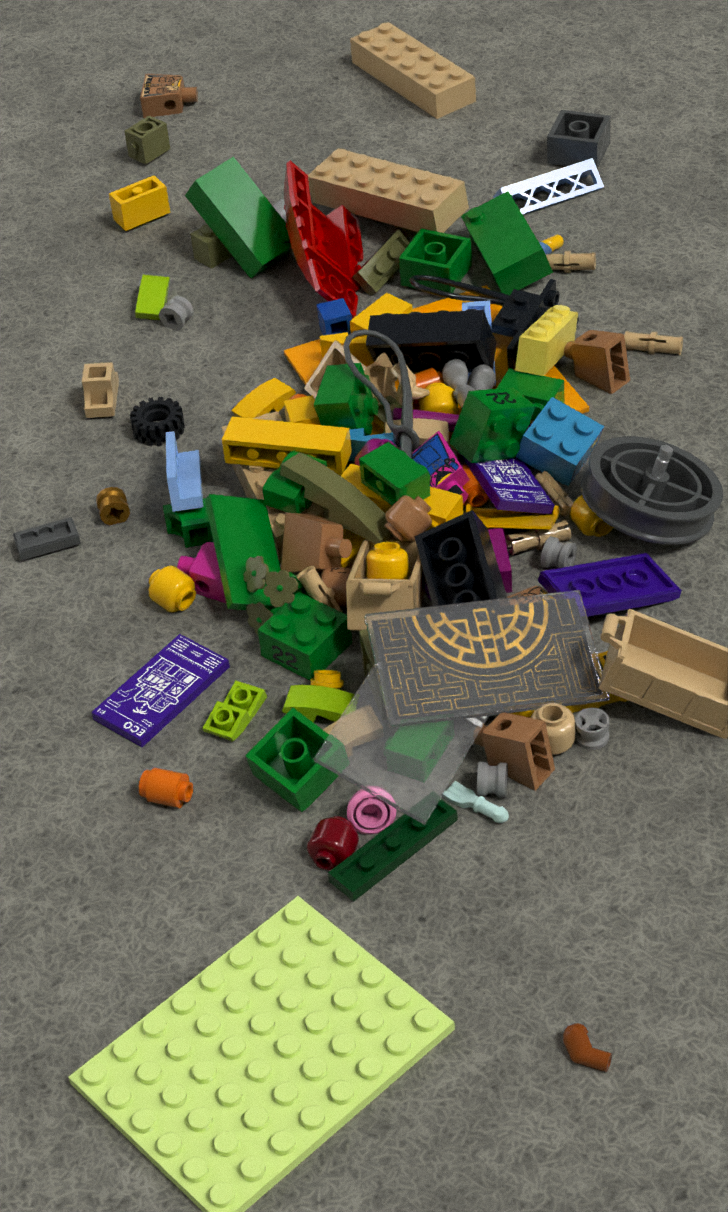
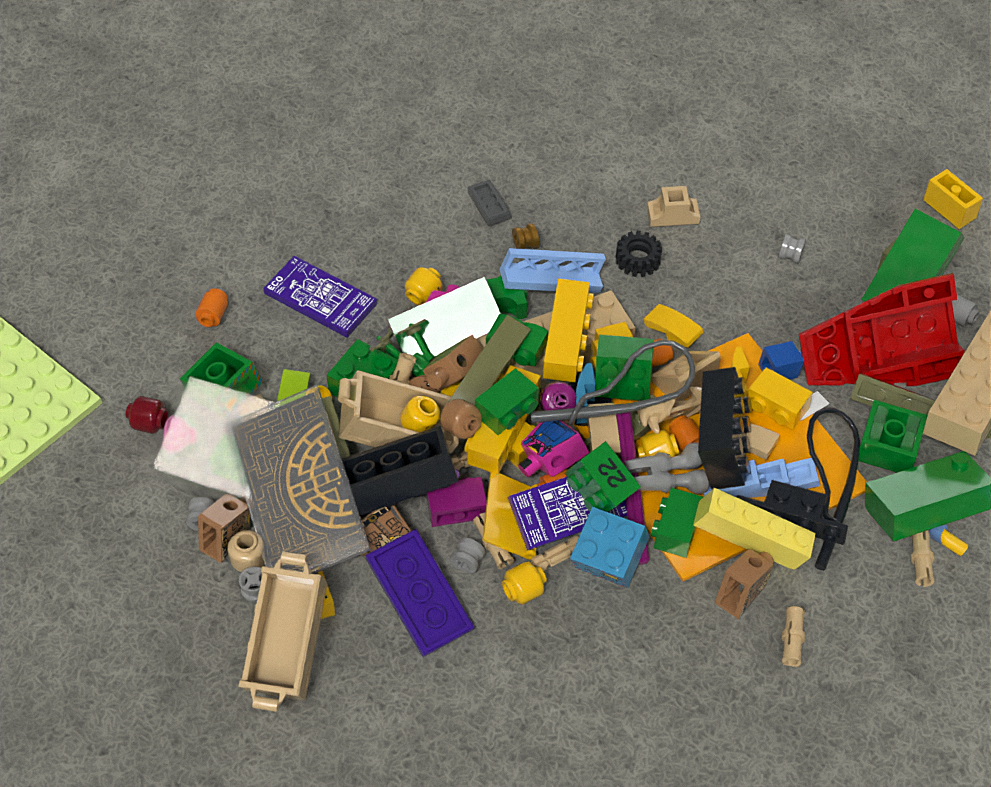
camera: 80 degrees right, 10 degrees up
(152, 296) = (817, 227): lime slope -> none
(235, 713) = (287, 342): lime slope -> none
(389, 851) = (137, 451): dark green plate -> none
(466, 798) = (182, 509): light aqua piece -> none
(651, 490) = (536, 620): dark grey wheel -> none

